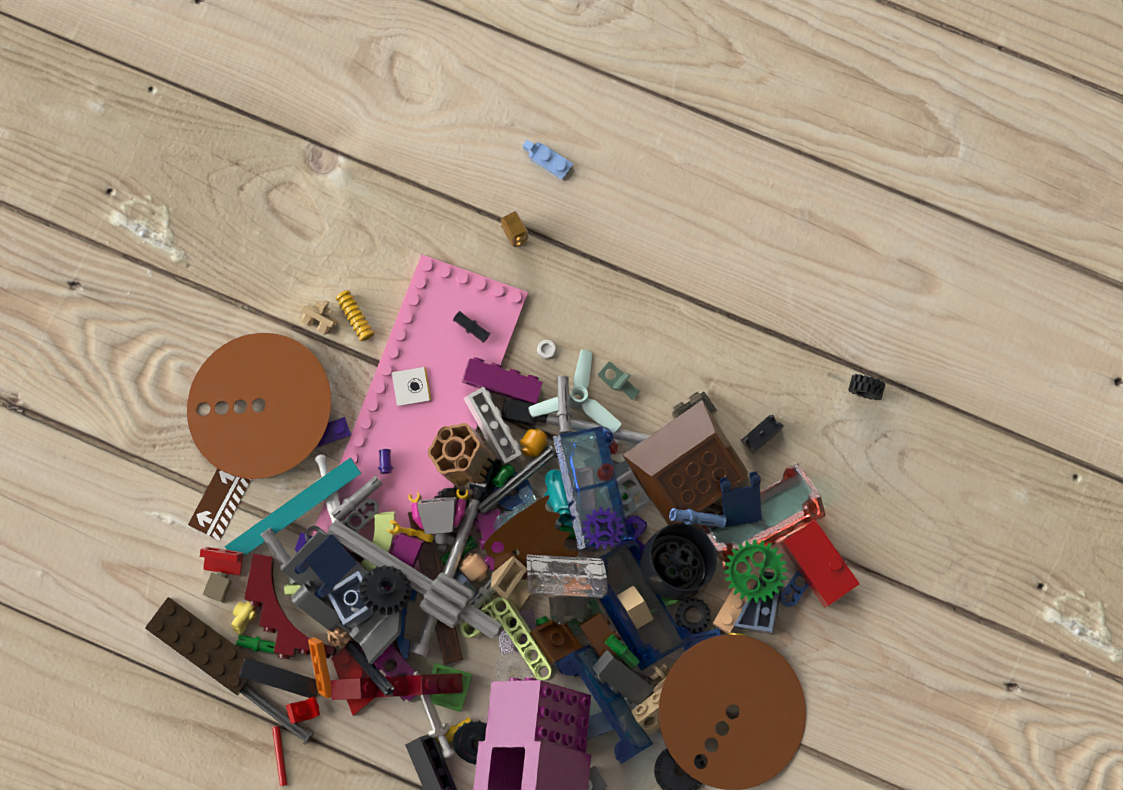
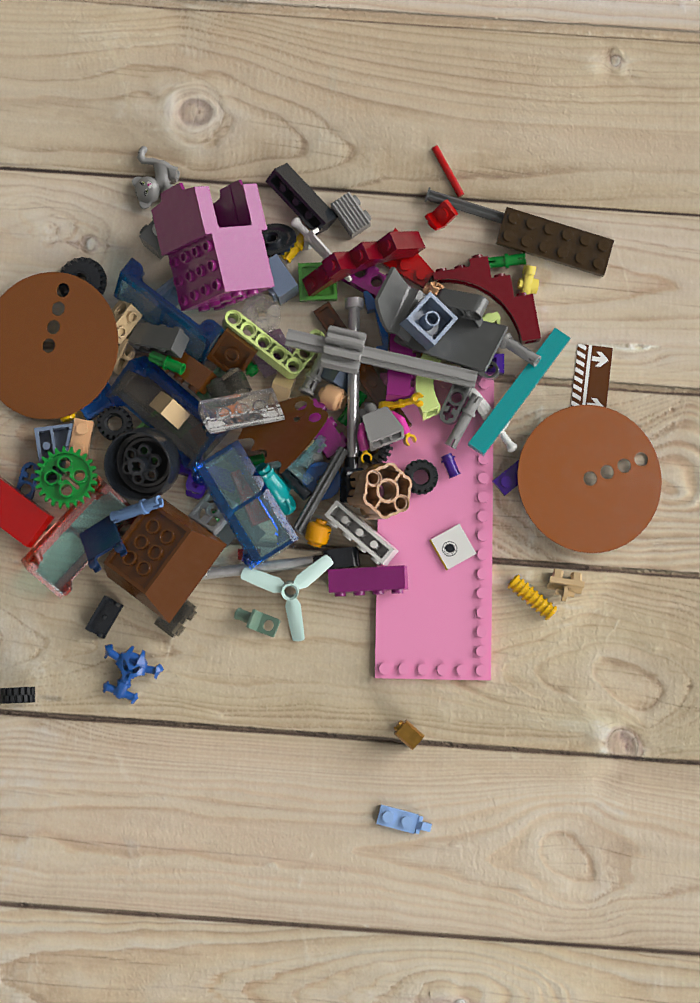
camera: 160 degrees right, 5 degrees up
(217, 586) = (562, 298): dark tan brick -> none
(222, 560) = (567, 324): red panel -> none
(279, 678) = (472, 235): black slope -> none
(320, 667) = (439, 256): orange tile -> none
(329, 563) = (464, 343): dark blue flag -> none
(371, 670) = (385, 259): black axle -> none
(383, 601) = (402, 320): black gear -> none
(391, 743) = (350, 214): none -> light grey brick
(405, 460) = (432, 476): none -> black tyre
(471, 326) = (416, 623): black pin -> none
(480, 692) = (284, 283): none -> sand blue brick
(505, 473) = (334, 489): green pin -> none
(507, 577) = (297, 393): tan slope -> none
(534, 485) = (296, 484): none -> black pin
(546, 349) = (337, 628): white tile -> none
(564, 413) = (296, 567): light grey pin -> none
(596, 523) = (224, 455): dark purple gear -> none
(605, 476) = (241, 519): clear red pin -> none
(752, 378) = (131, 666): none -> blue piece

